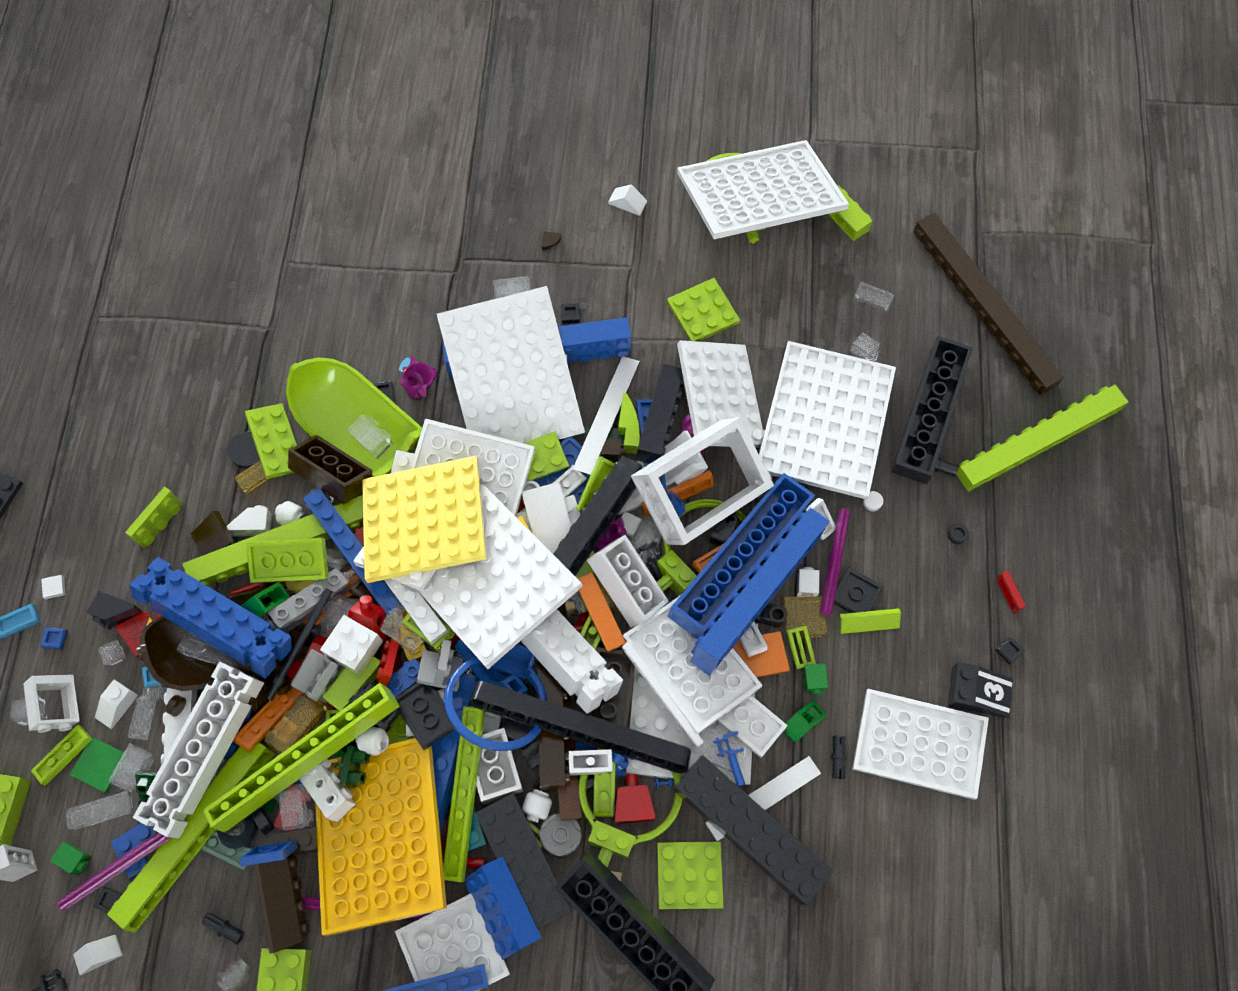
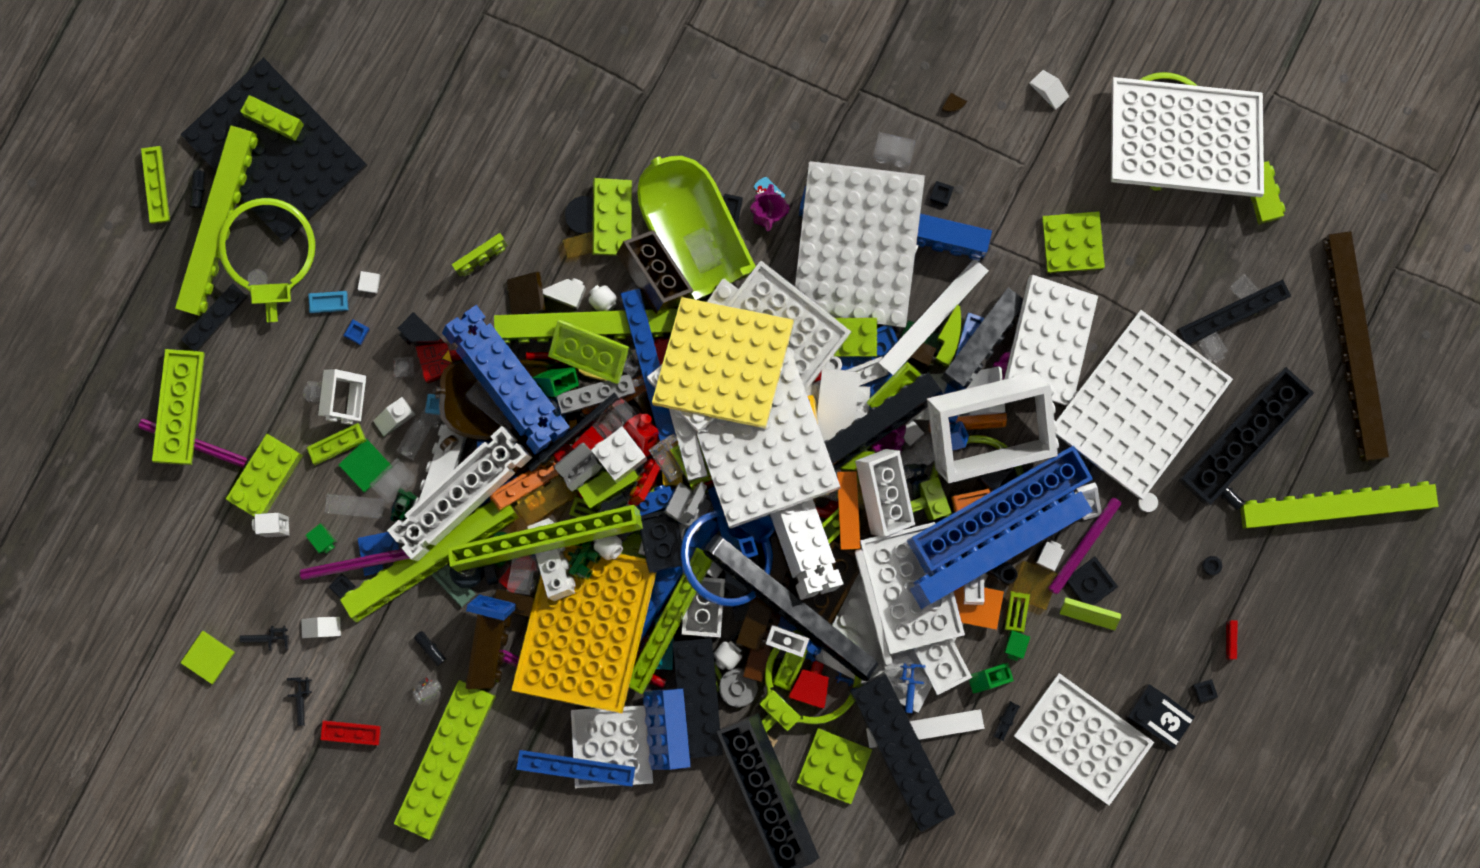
camera: 25 degrees right, 15 degrees up
(869, 313) = (1234, 312): none -> black tile

